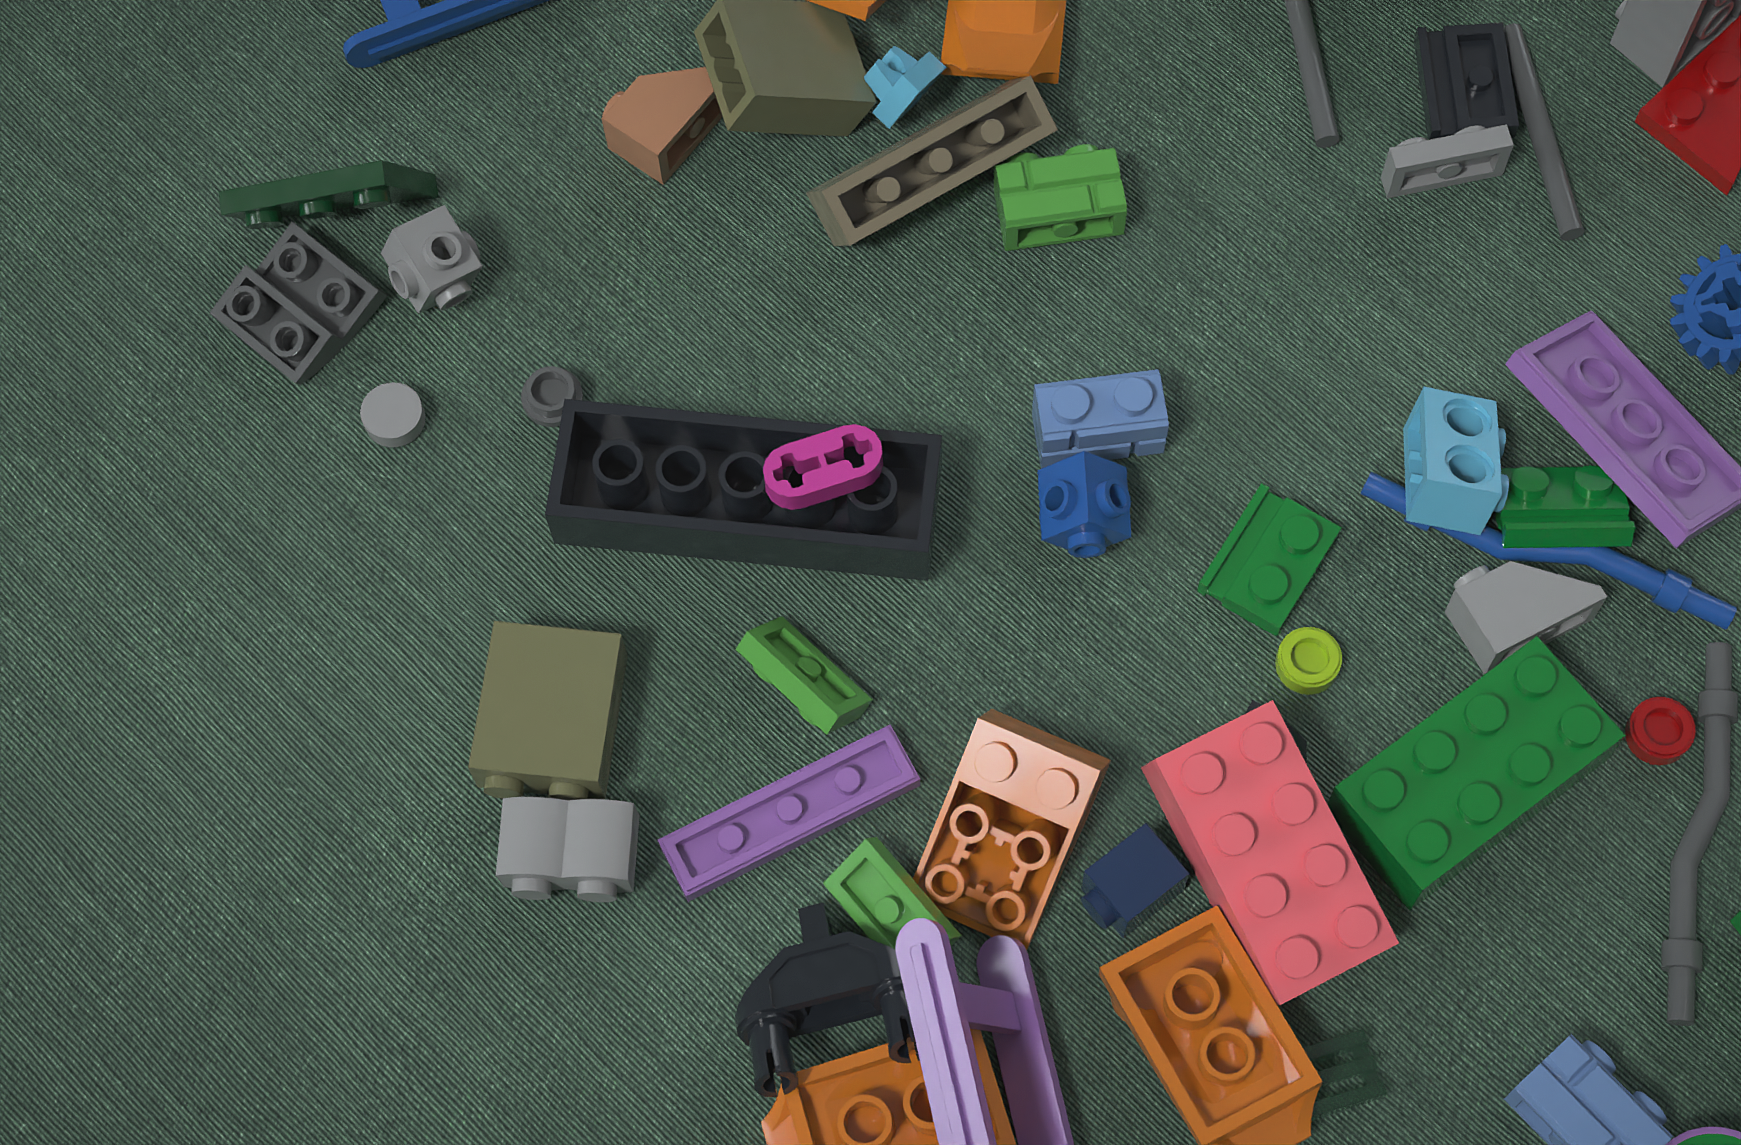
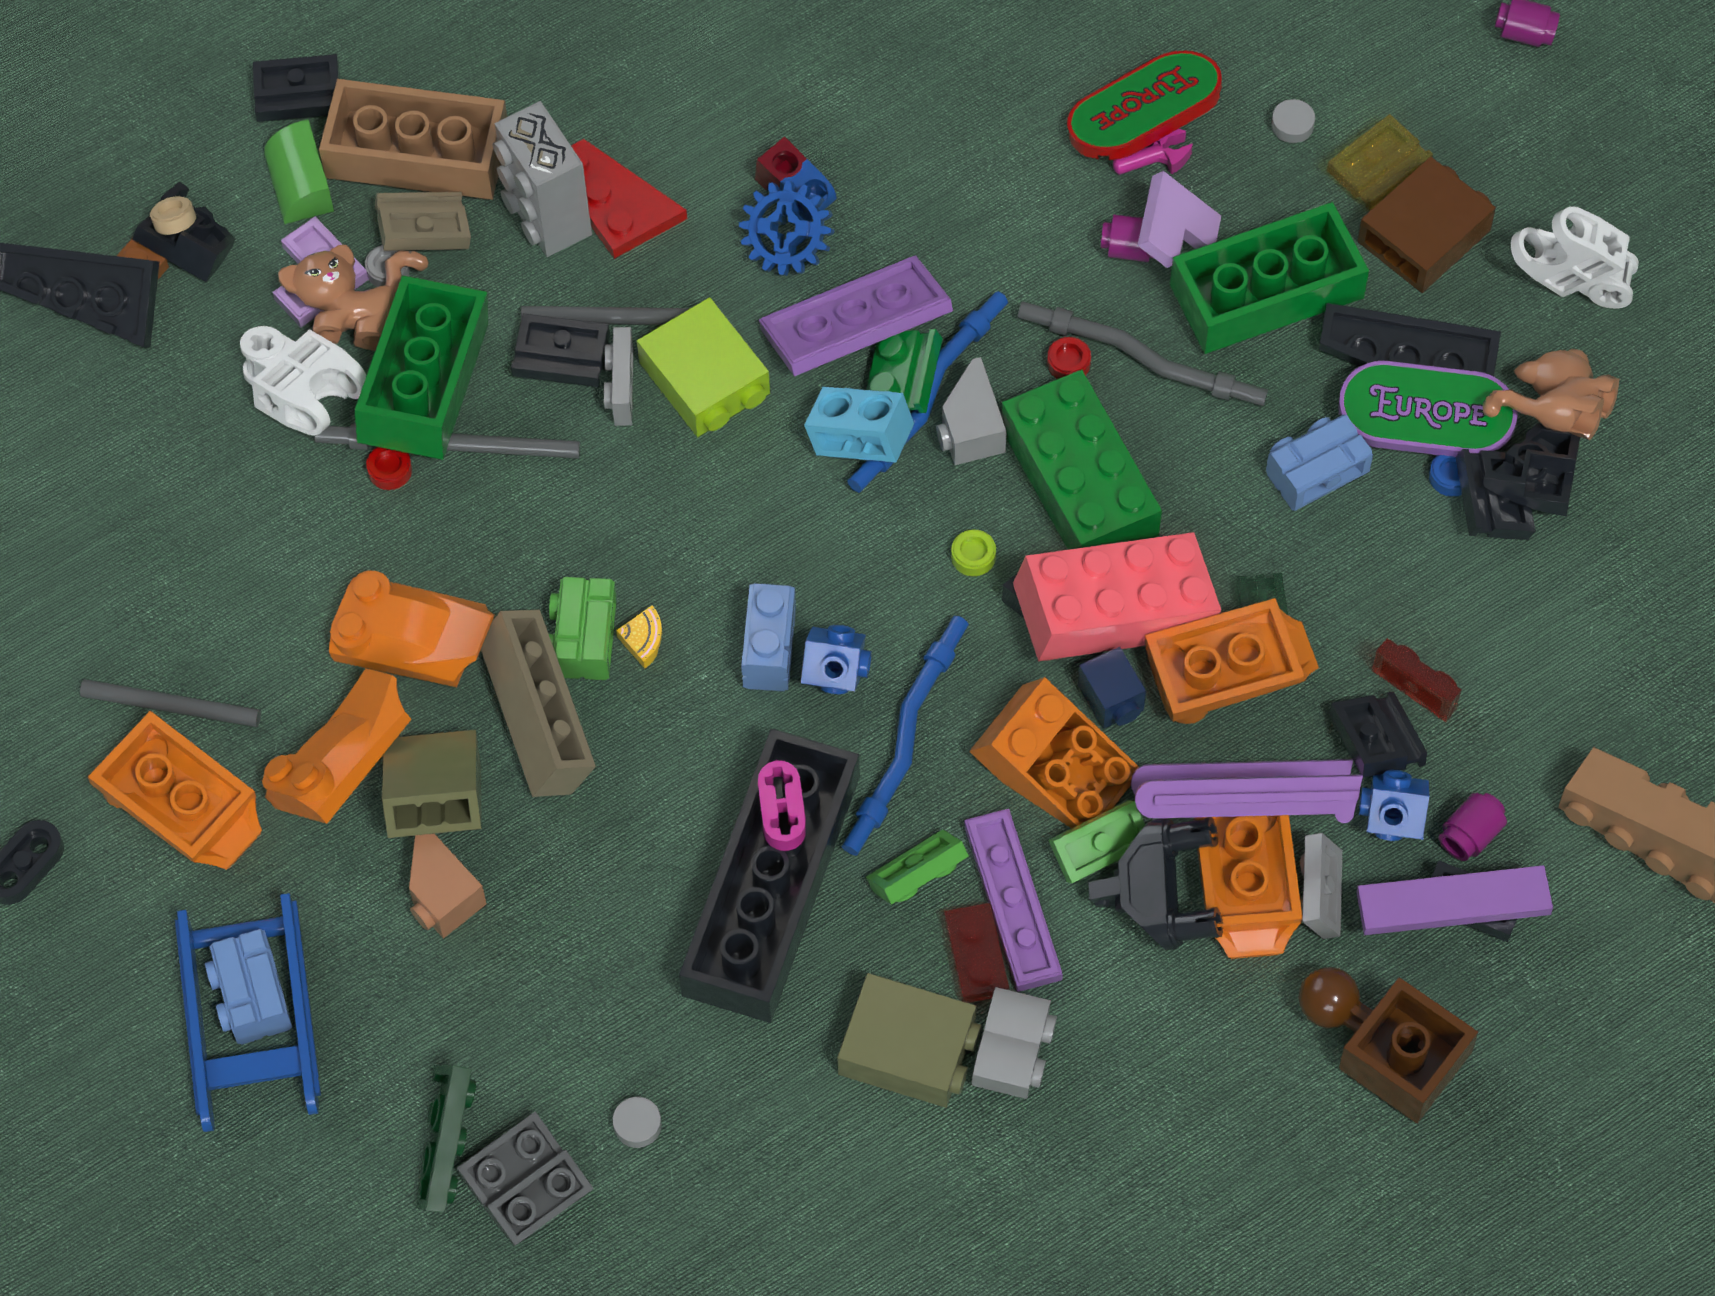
camera: 80 degrees left, 5 degrees down
(432, 261) = (523, 1065): light grey brick -> none
(545, 394) = (652, 1005): dark grey plate -> none
(700, 779) = (975, 952): none -> clear red plate
(901, 82) = (464, 708): medium azure tile -> none
(1072, 274) = (642, 636): none -> yellow tile
(1128, 644) = (874, 808): none -> blue bar
(1269, 560) = (894, 559): green plate -> none
(1490, 255) = (704, 367): none -> lime brick

